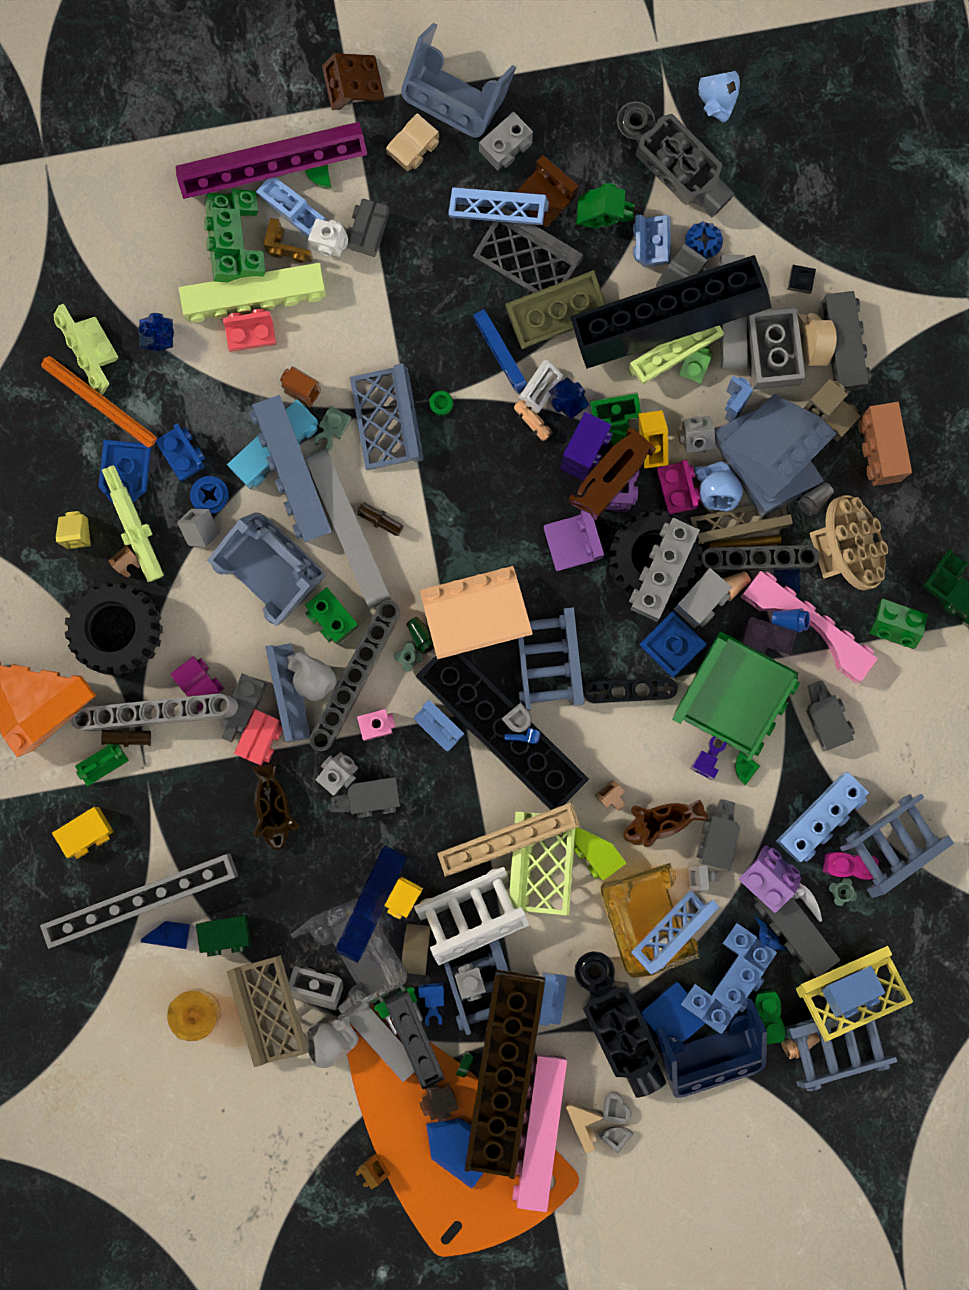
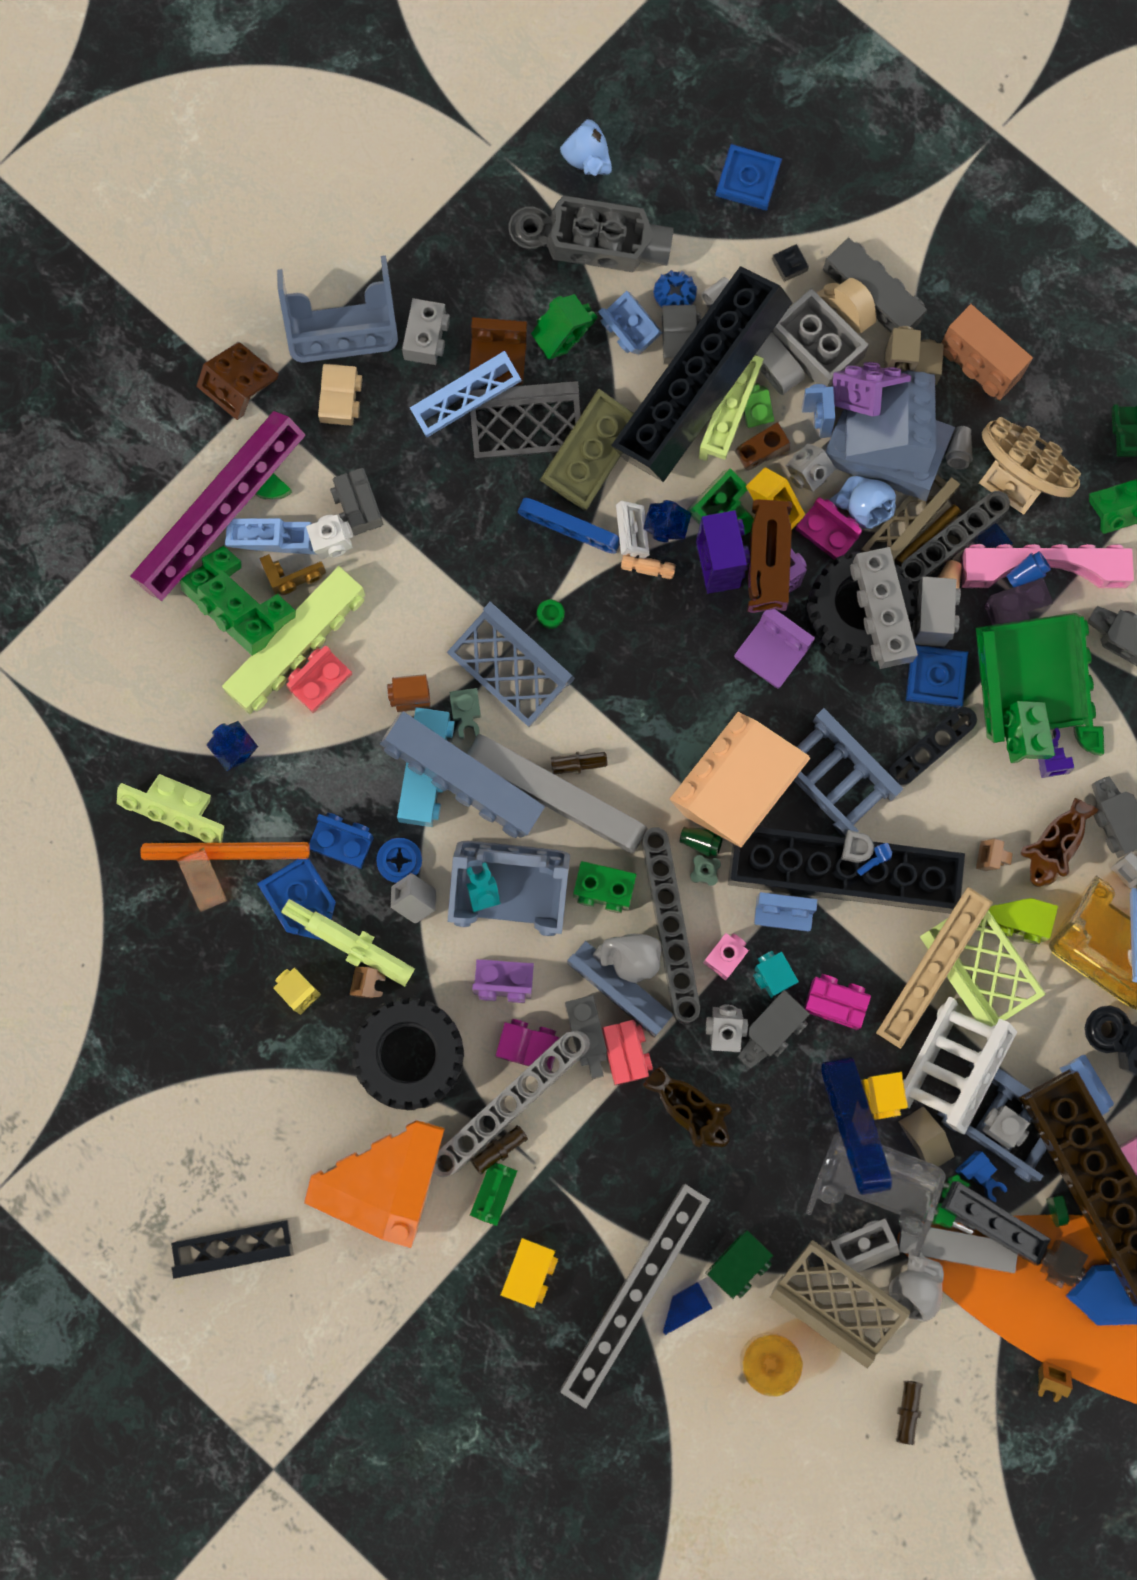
camera: 40 degrees left, 5 degrees down
(68, 409) = (202, 879): none -> clear orange plate
(218, 628) = (503, 980): none -> medium lavender bracket
(246, 556) = (482, 889): none -> teal plate
(261, 1116) = (909, 1412): none -> dark brown pin
(399, 761) = (774, 974): none -> teal brick
(426, 813) = (837, 1002): none -> dark pink brick
(677, 395) = (763, 447): none -> reddish brown leg
(701, 729) = (1027, 731): none -> green bracket
(774, 401) = (861, 387): none -> medium lavender bracket
(820, 196) = (748, 177): none -> blue tile

